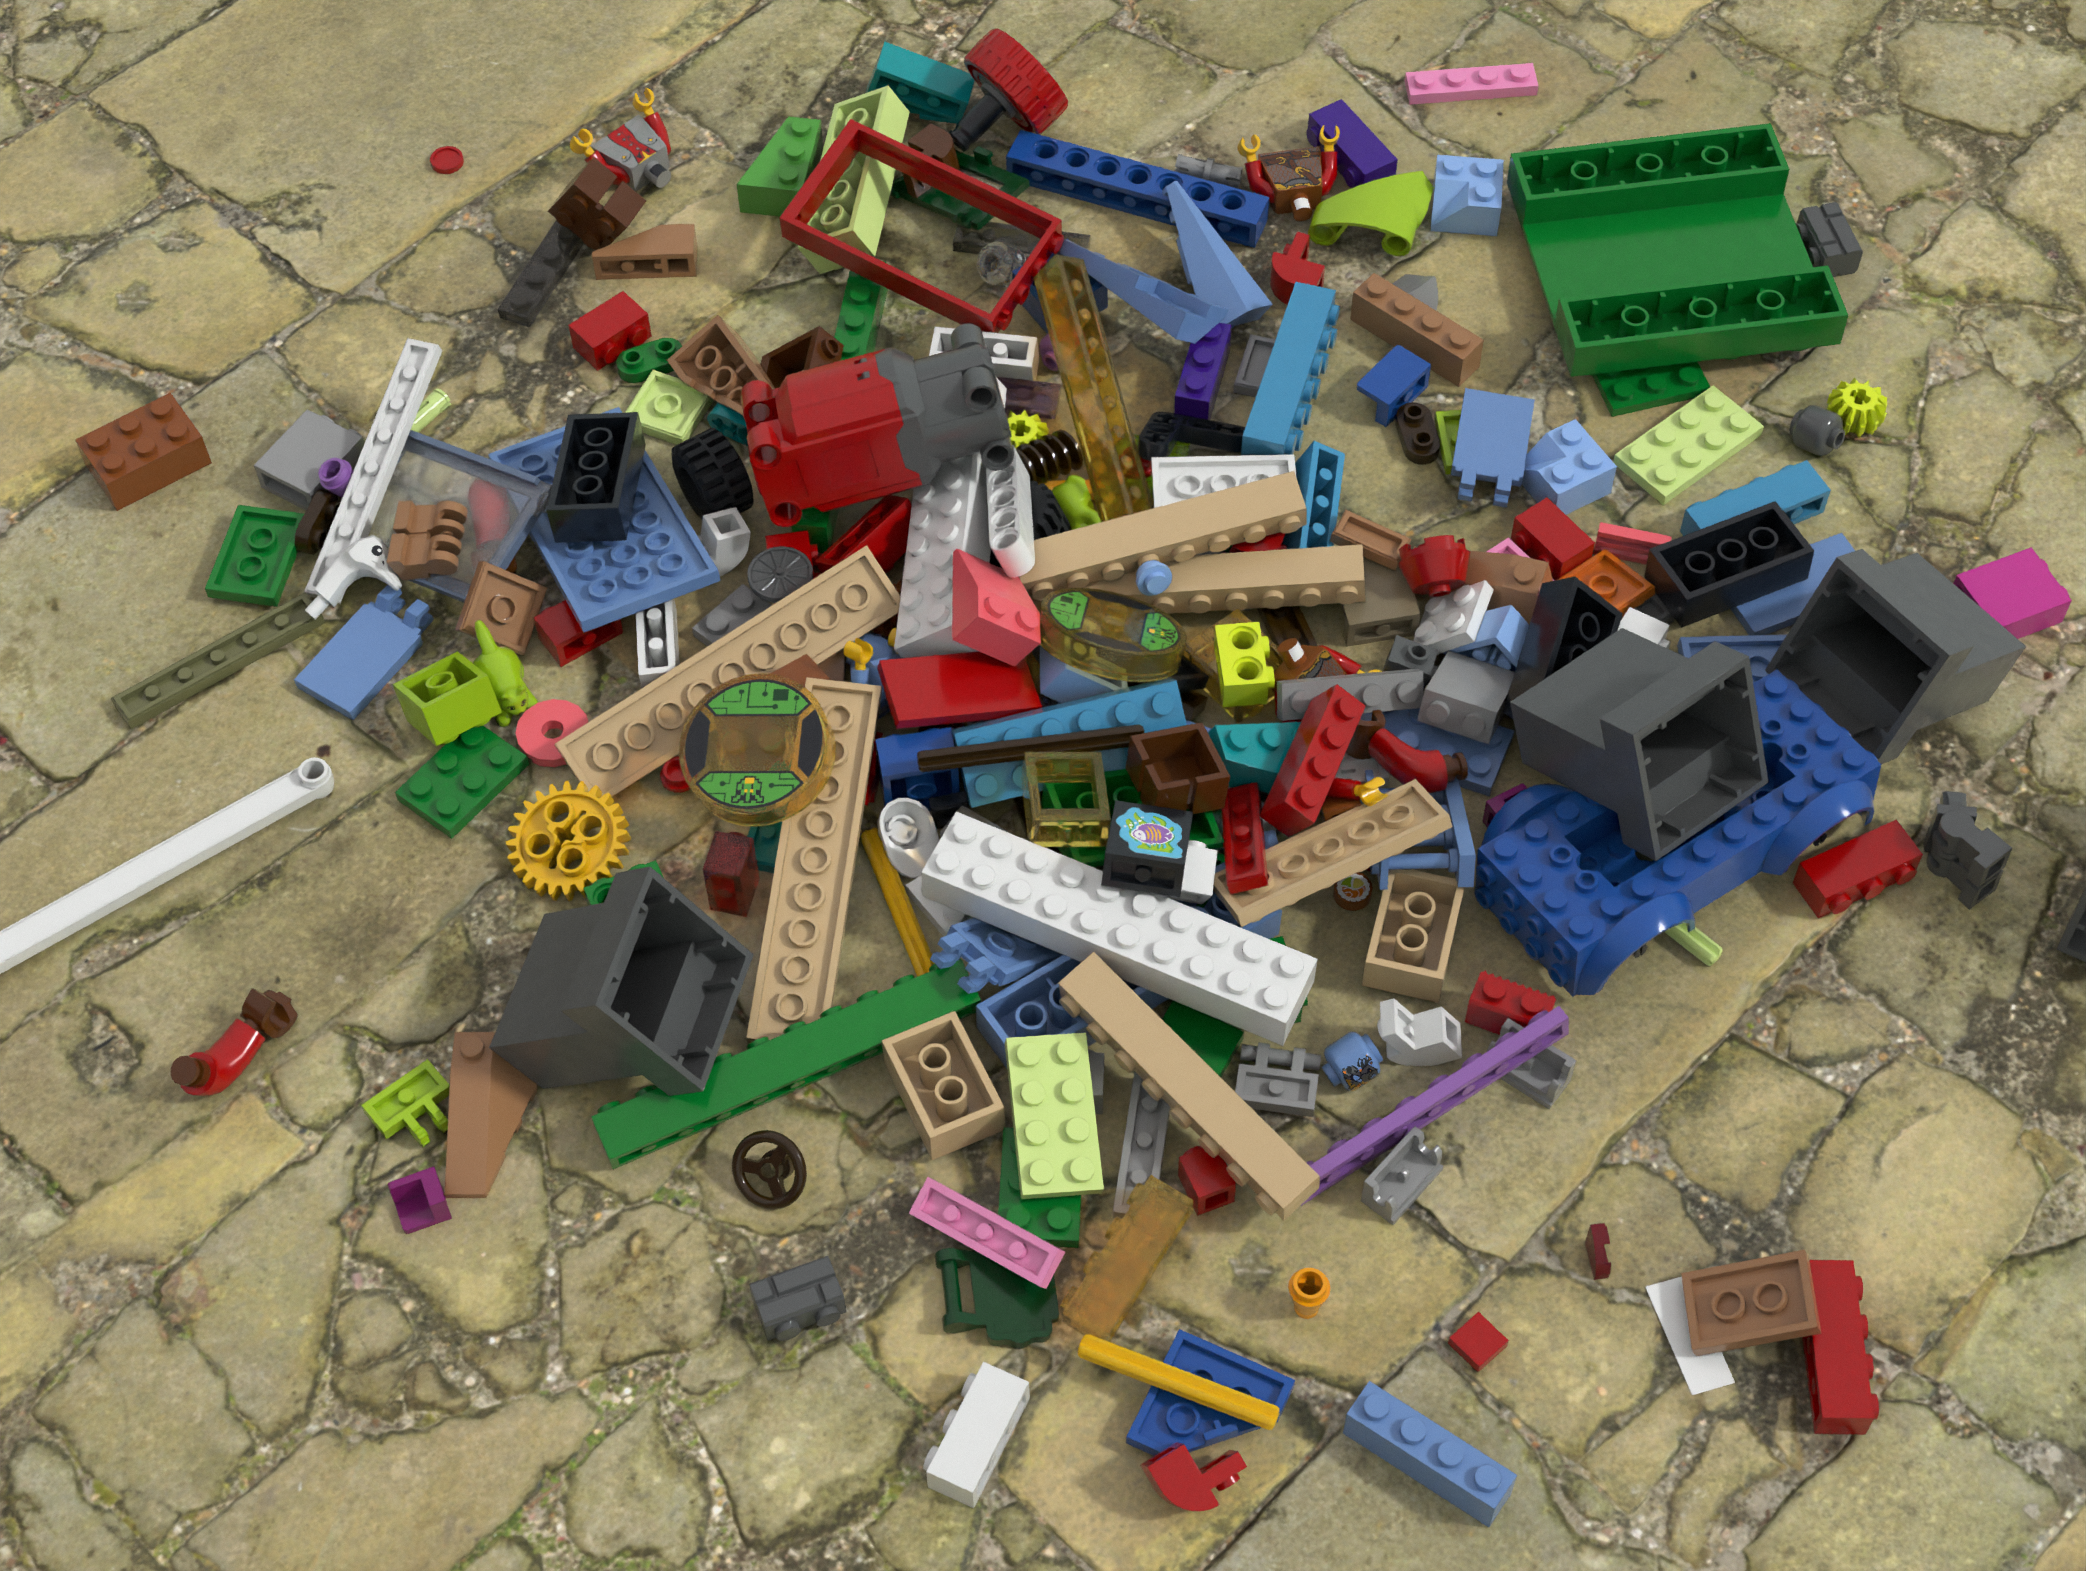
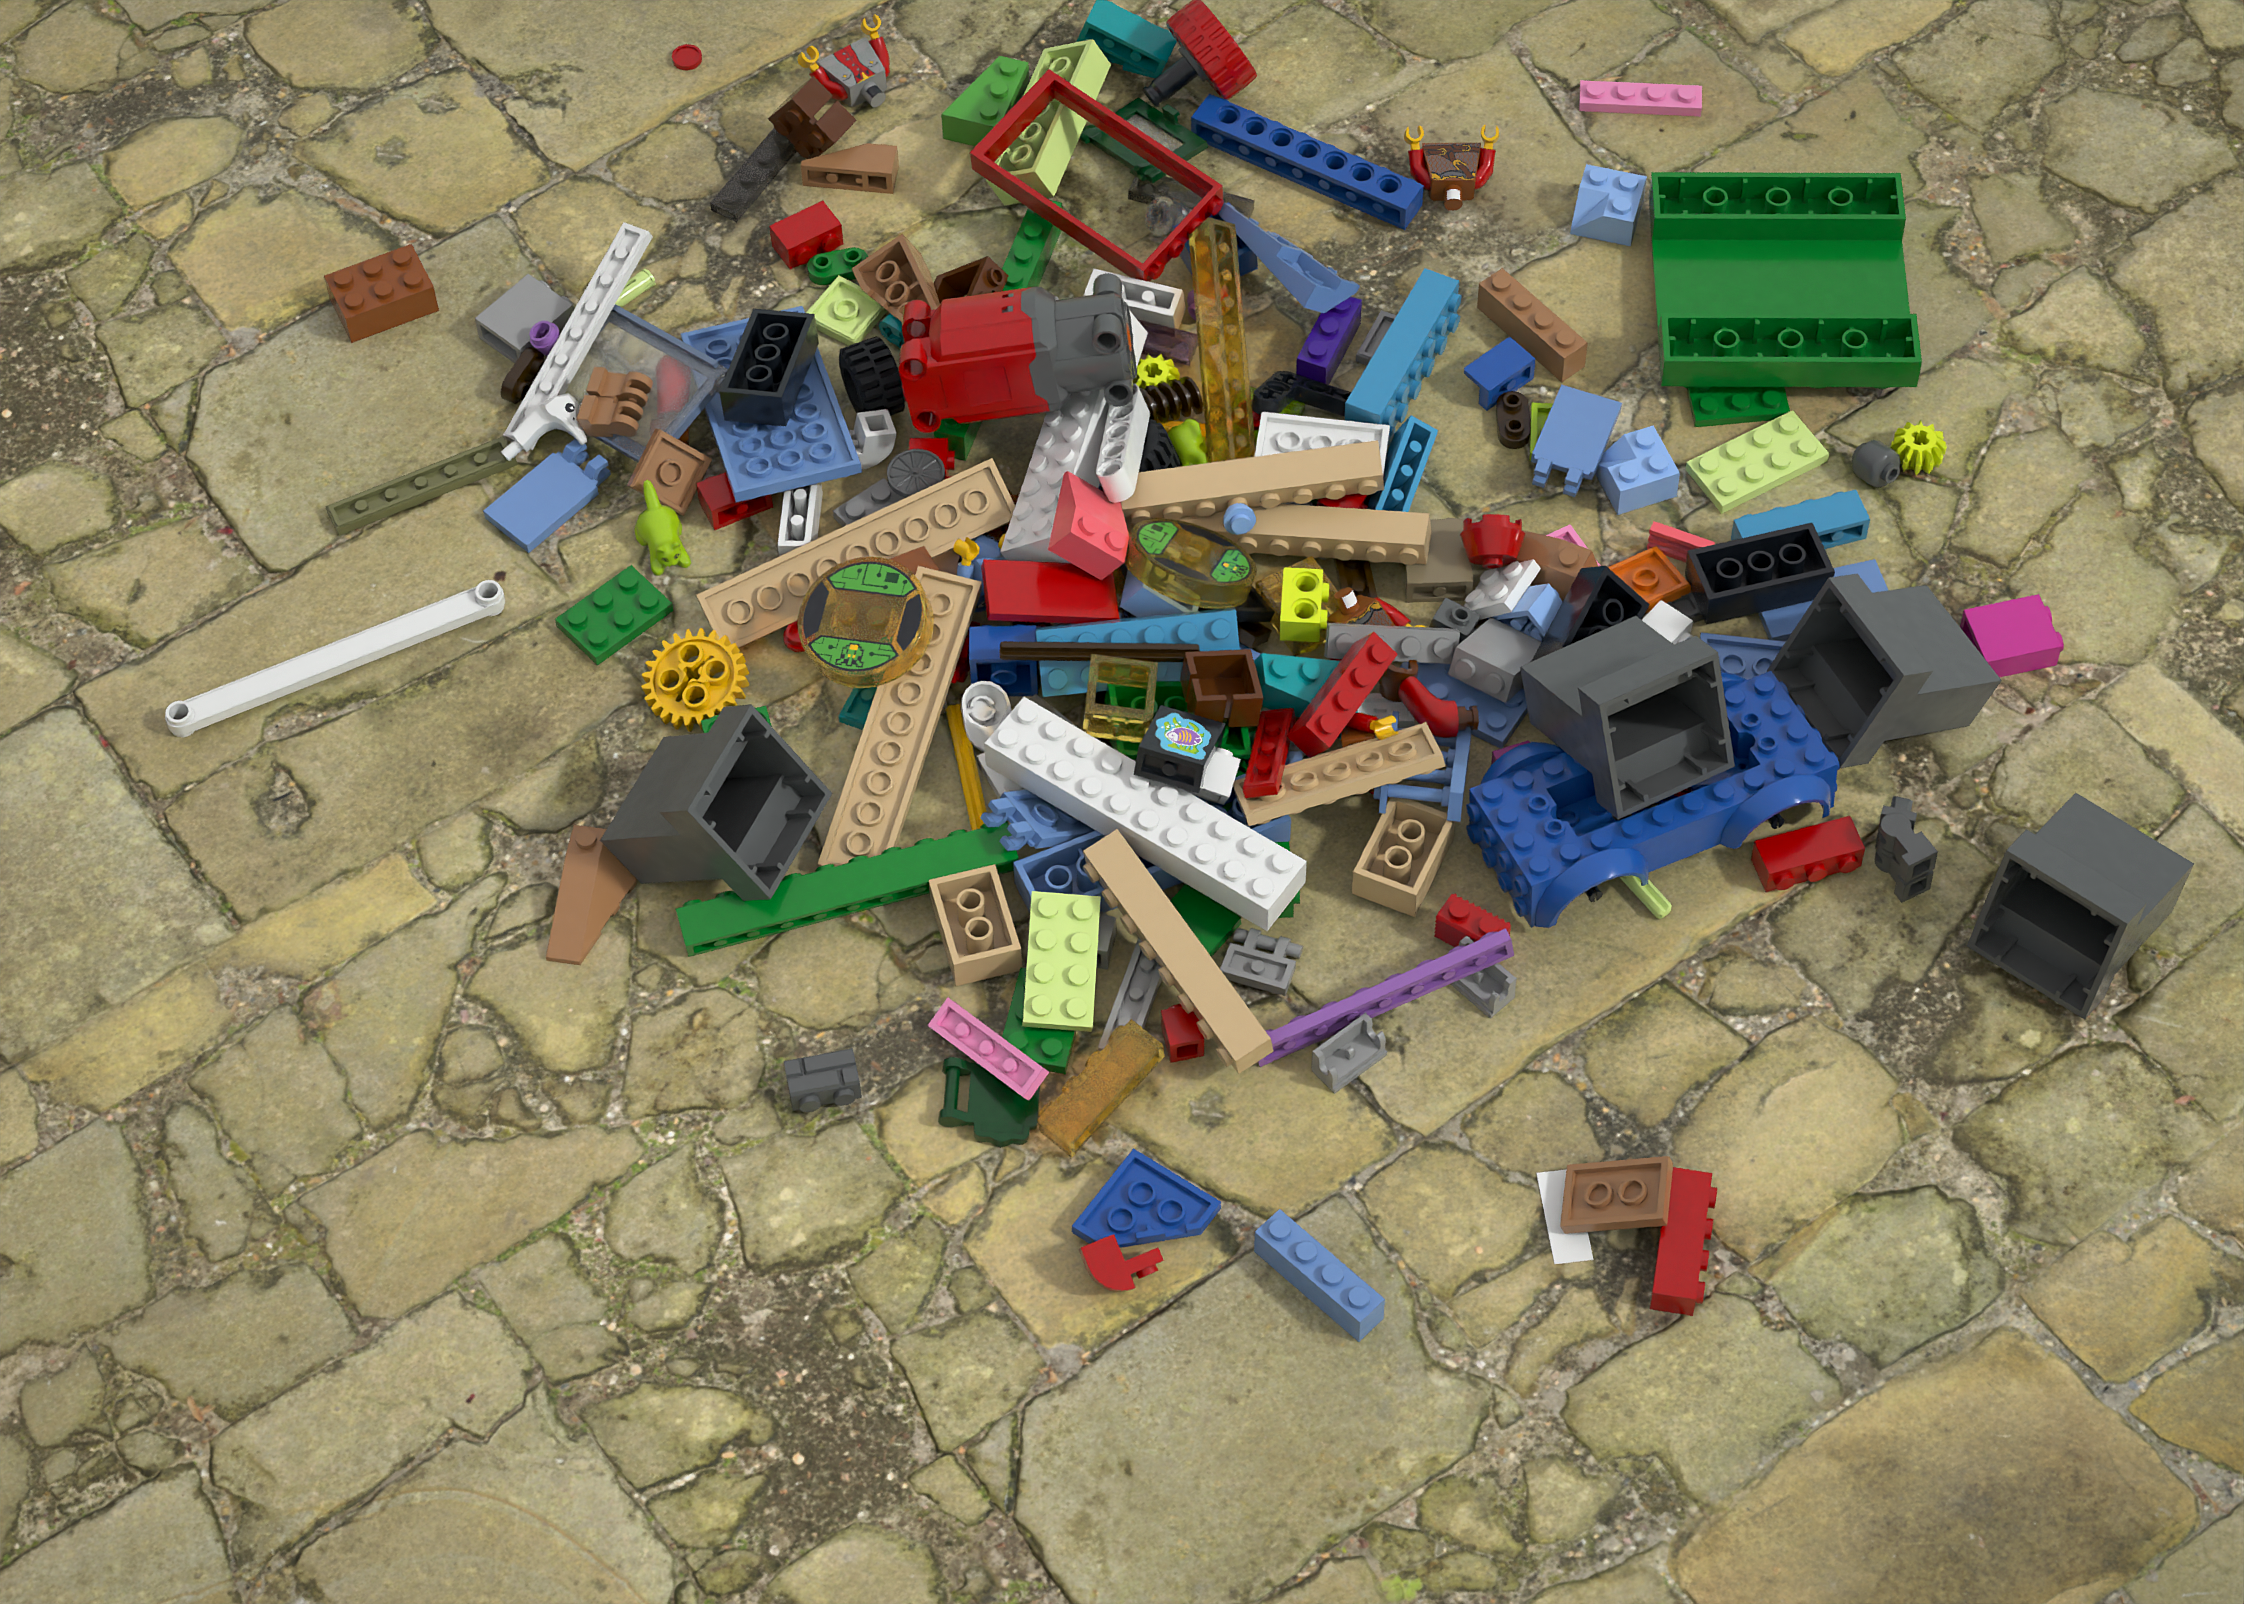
camera: 10 degrees right, 0 degrees up
(228, 1057) = (378, 825): piece -> none
(255, 556) = (465, 399): green plate -> none
(407, 1100) = (527, 876): lime hinge -> none
(419, 1200) = (524, 958): magenta panel -> none
(447, 698) = (611, 544): lime brick -> none
(539, 720) = (689, 573): coral tile -> none
(731, 873) = (828, 725): clear red brick -> none
(785, 1159) = (832, 969): dark brown piece -> none
(881, 529) = (1009, 448): red brick -> none
(936, 144) = (1127, 102): reddish brown brick -> none
(945, 806) = (1027, 690): black tile -> none
(976, 1434) = (950, 1206): white brick -> none
(1178, 1382) = (1122, 1188): yellow axle -> none
(1209, 170) = (1376, 152): light grey pin -> none
(1211, 264) = (1357, 243): medium blue wedge -> none
(1294, 267) = (1434, 253): red brick -> none
(1308, 1291) = (1246, 1133): light orange cone -> none
(1352, 1061) = (1327, 954): medium blue head -> none
(1353, 892) = (1362, 813): tile -> none
(1359, 151) = (1517, 152): dark purple brick -> none
(1377, 541) = (1444, 510): medium nougat tile -> none
(1386, 205) = (1528, 206): lime panel -> none
(1419, 1038) = (1388, 944): white brick -> none
(1421, 287) = (1543, 288): light grey tile -> none
(1478, 1342) = (1383, 1195): red tile -> none
(1551, 537) = (1608, 530): red brick -> none
(1594, 1242) = (1501, 1137): dark red tile -> none
(1829, 239) = (1933, 289): dark grey brick -> none

